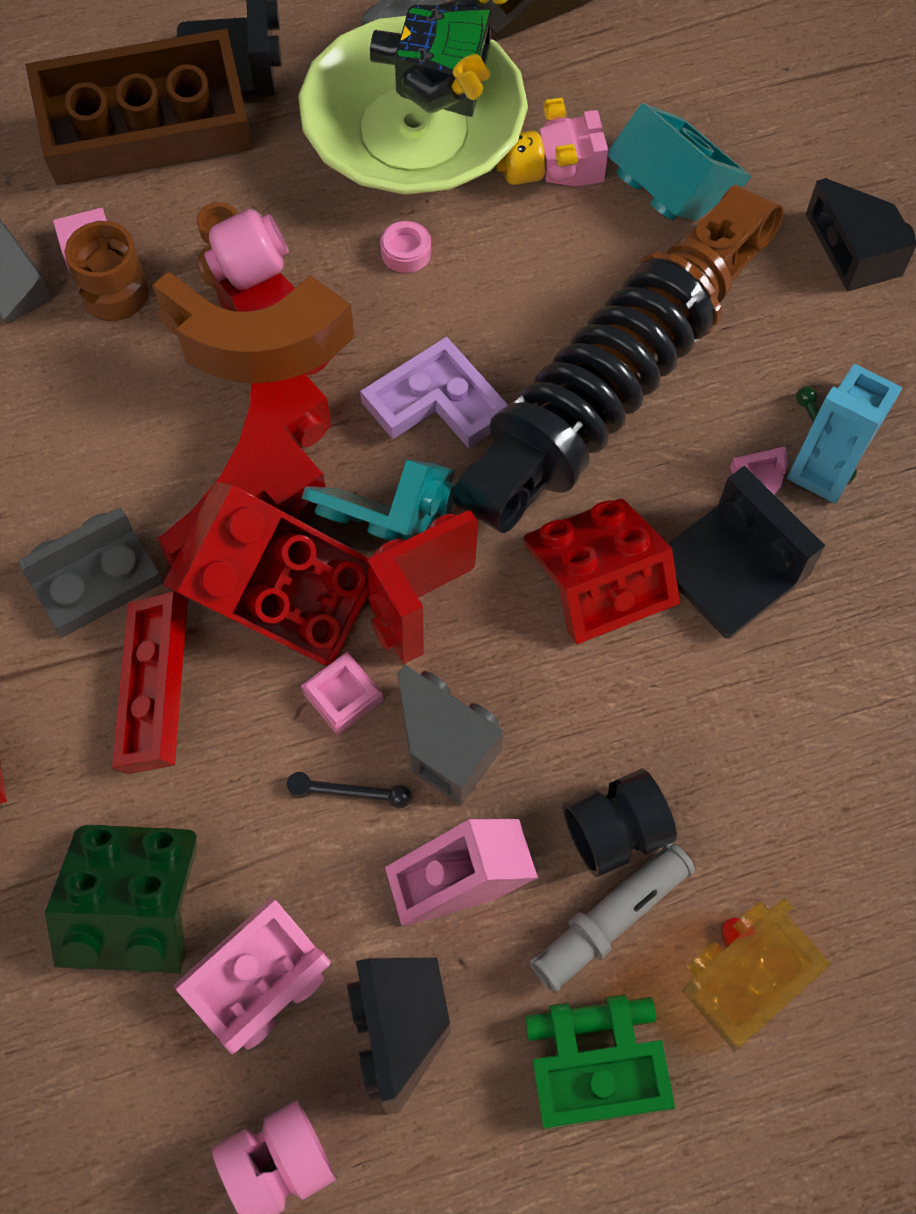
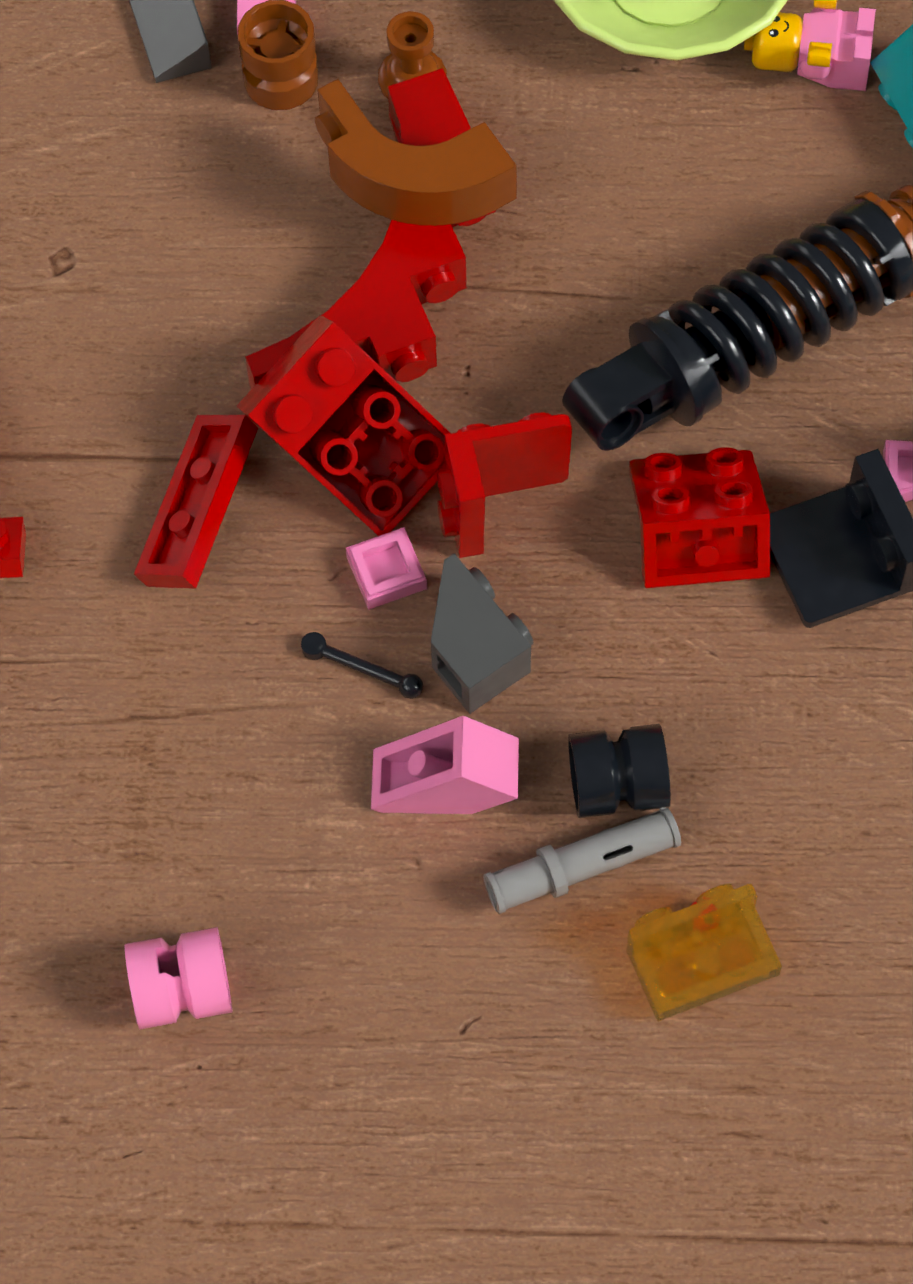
camera: 20 degrees right, 0 degrees up
(90, 571) = (168, 372): dark grey bracket -> none
(121, 899) = (106, 701): dark green bracket -> none
(246, 249) = (429, 74): bright pink head -> none
(253, 977) = (210, 807): bright pink bracket -> none
(405, 246) = (613, 109): bright pink tile -> none
(406, 1022) = (339, 886): black slope -> none
(421, 498) = (524, 385): teal bracket -> none
(431, 383) = (585, 270): lavender plate -> none
(601, 1082) = (512, 1005): green plate -> none

